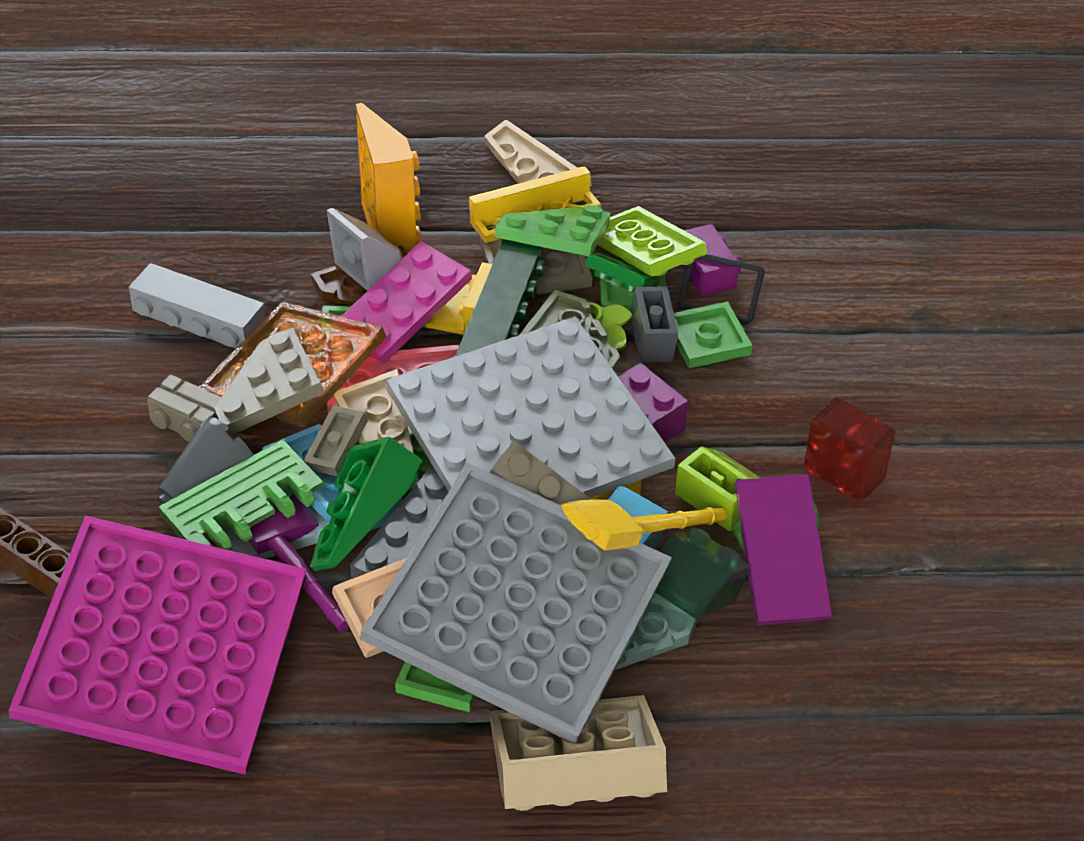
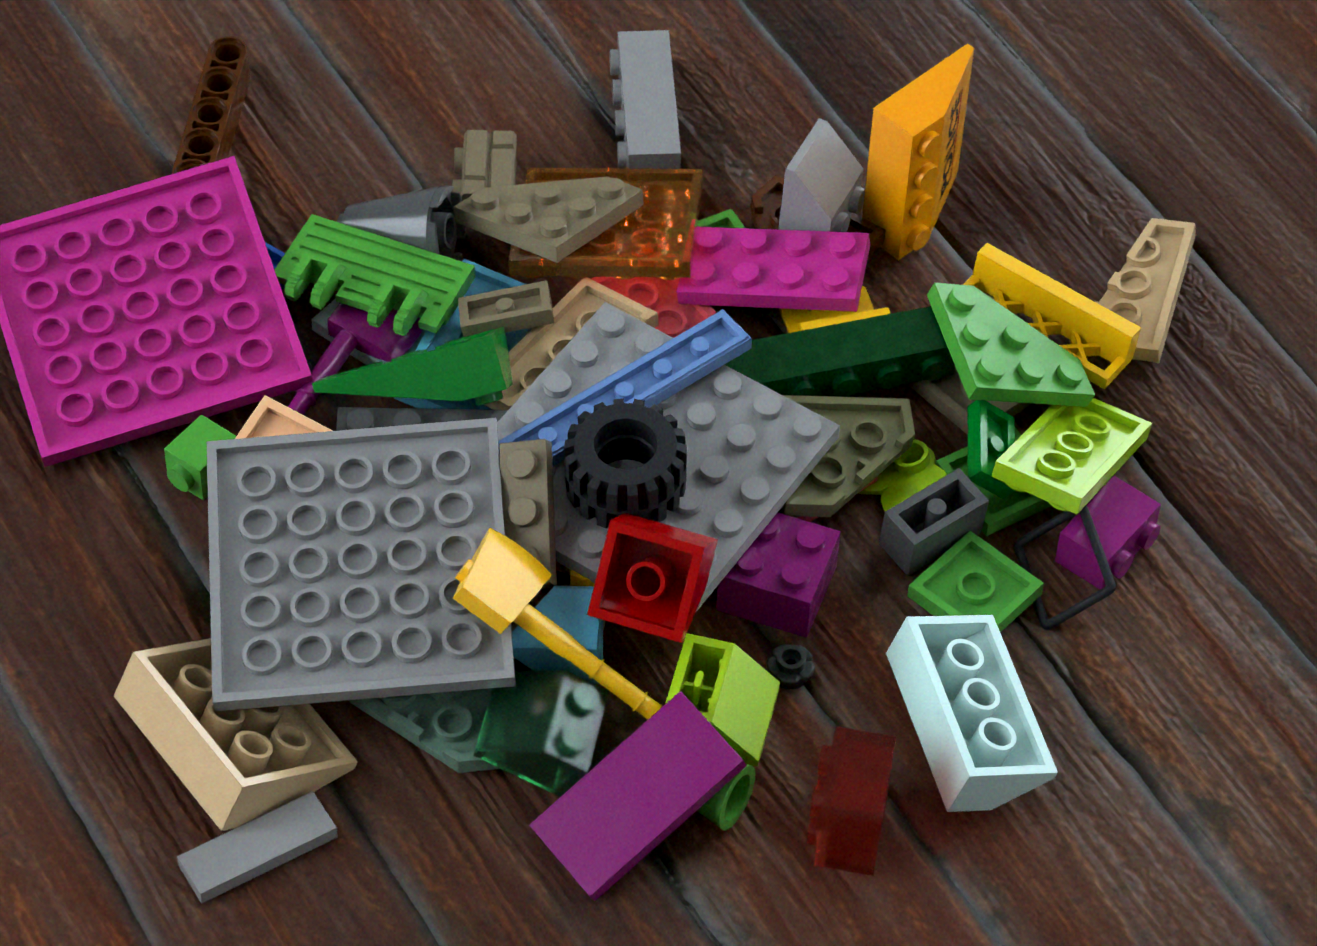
camera: 60 degrees right, 5 degrees up
(319, 669) = (188, 456): none -> bright green brick
(480, 391) = (646, 379): none -> medium blue tile
(554, 395) = (625, 433): none -> black tyre
(648, 446) = (651, 576): none -> red slope
(686, 786) = (257, 847): none -> light grey tile
(708, 438) = (789, 675): none -> pearl dark grey plate
(803, 372) = (969, 710): none -> light aqua slope

